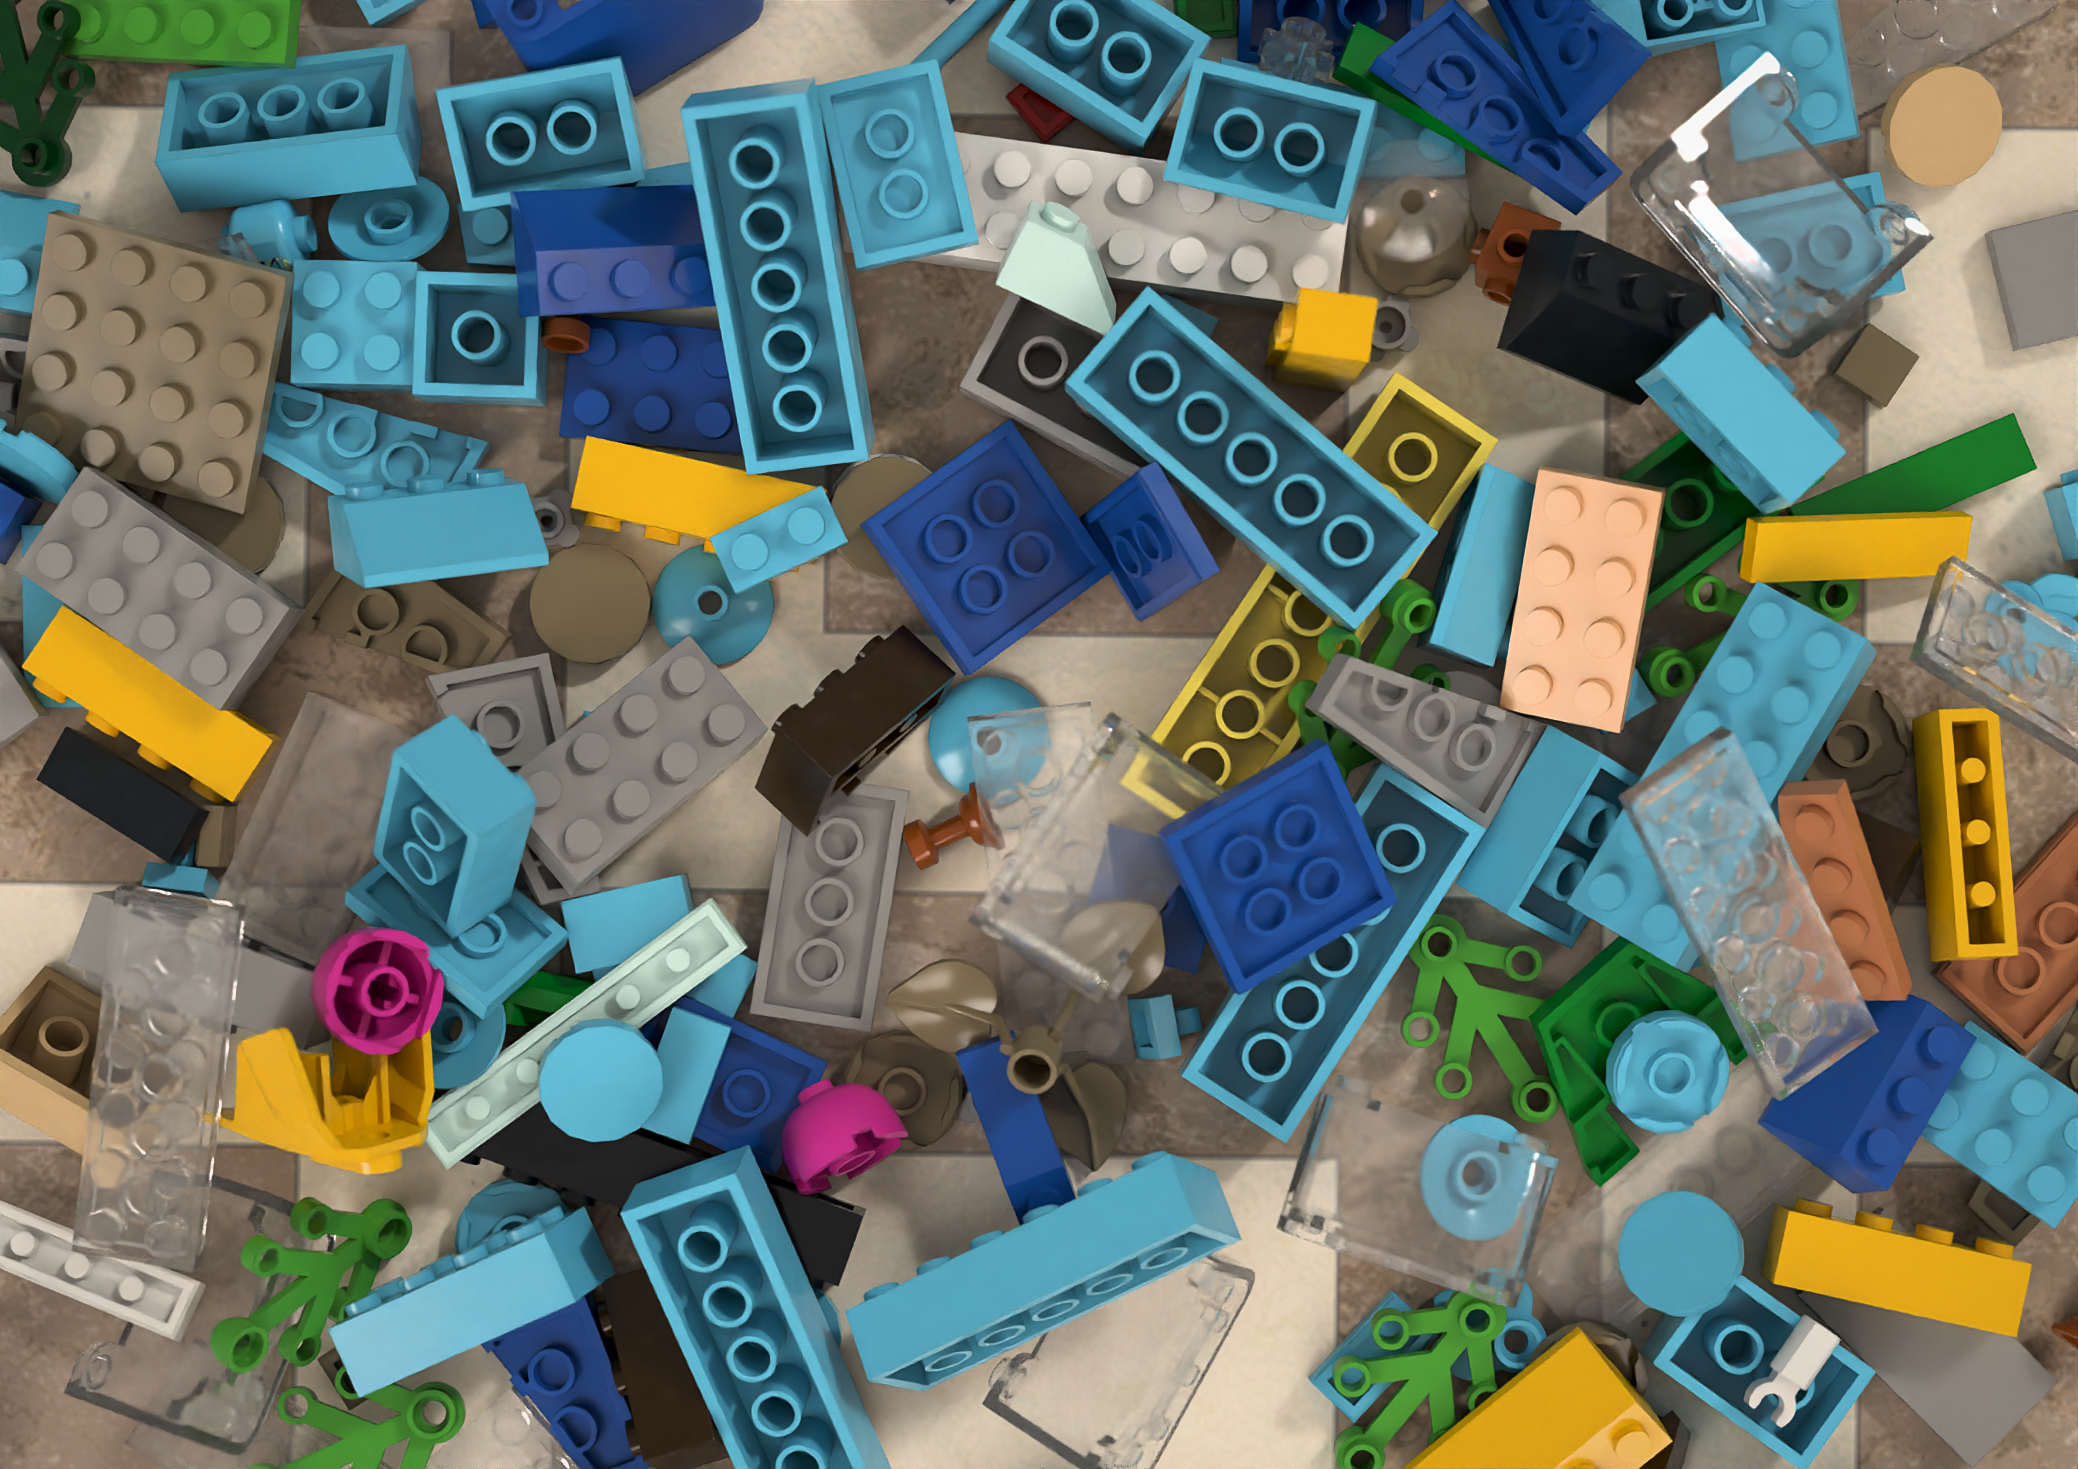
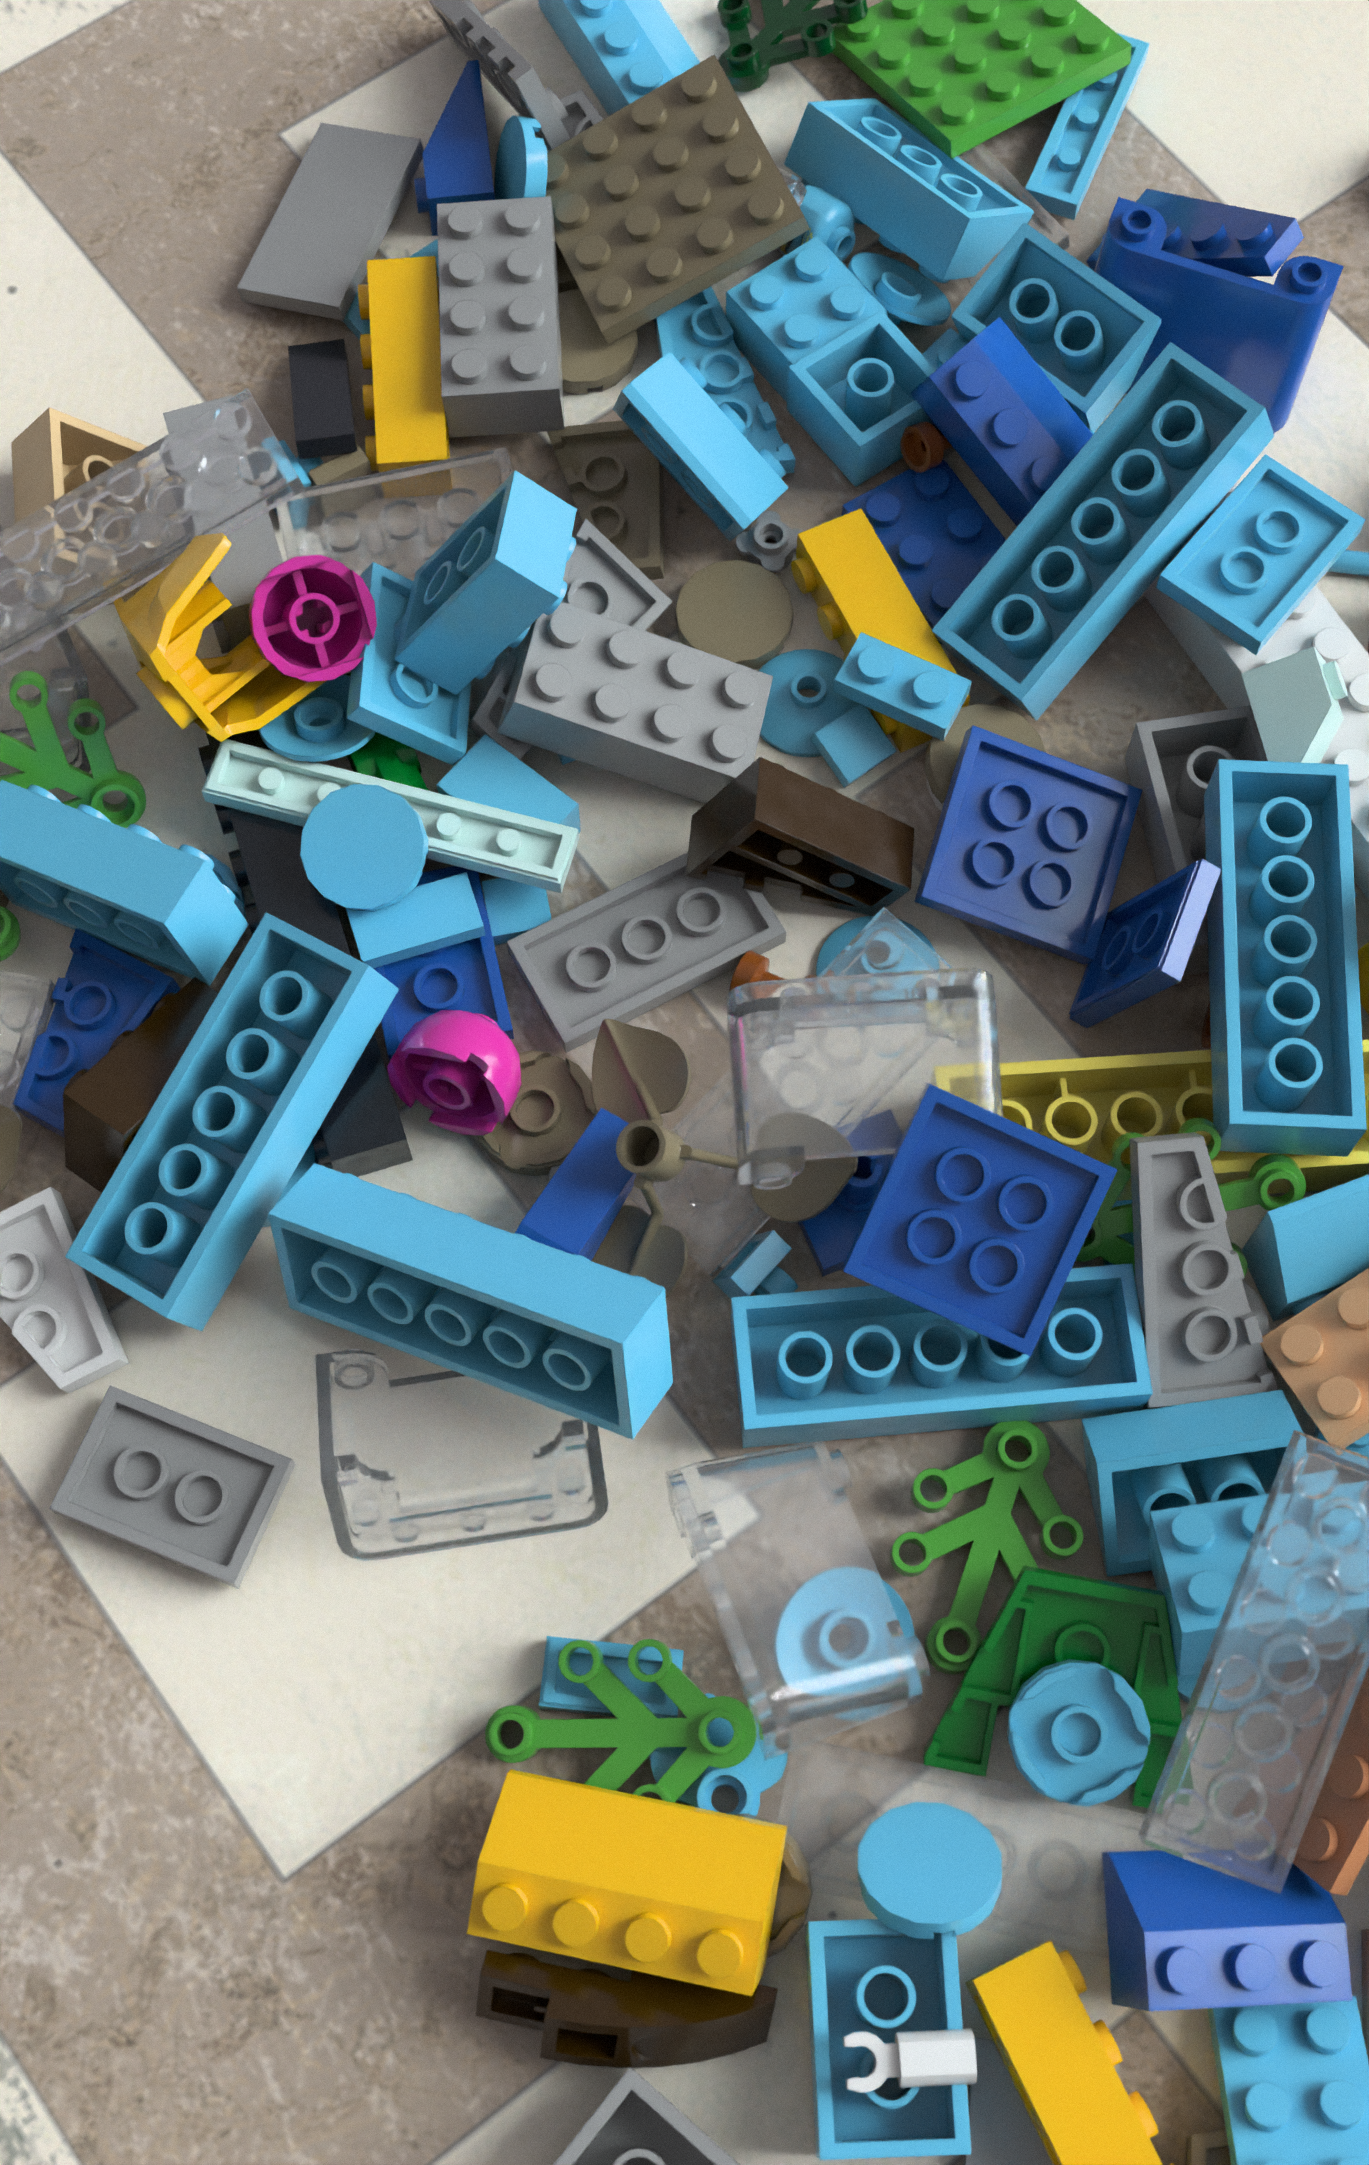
camera: 55 degrees right, 20 degrees down
(786, 605) = (853, 744): none -> medium azure tile

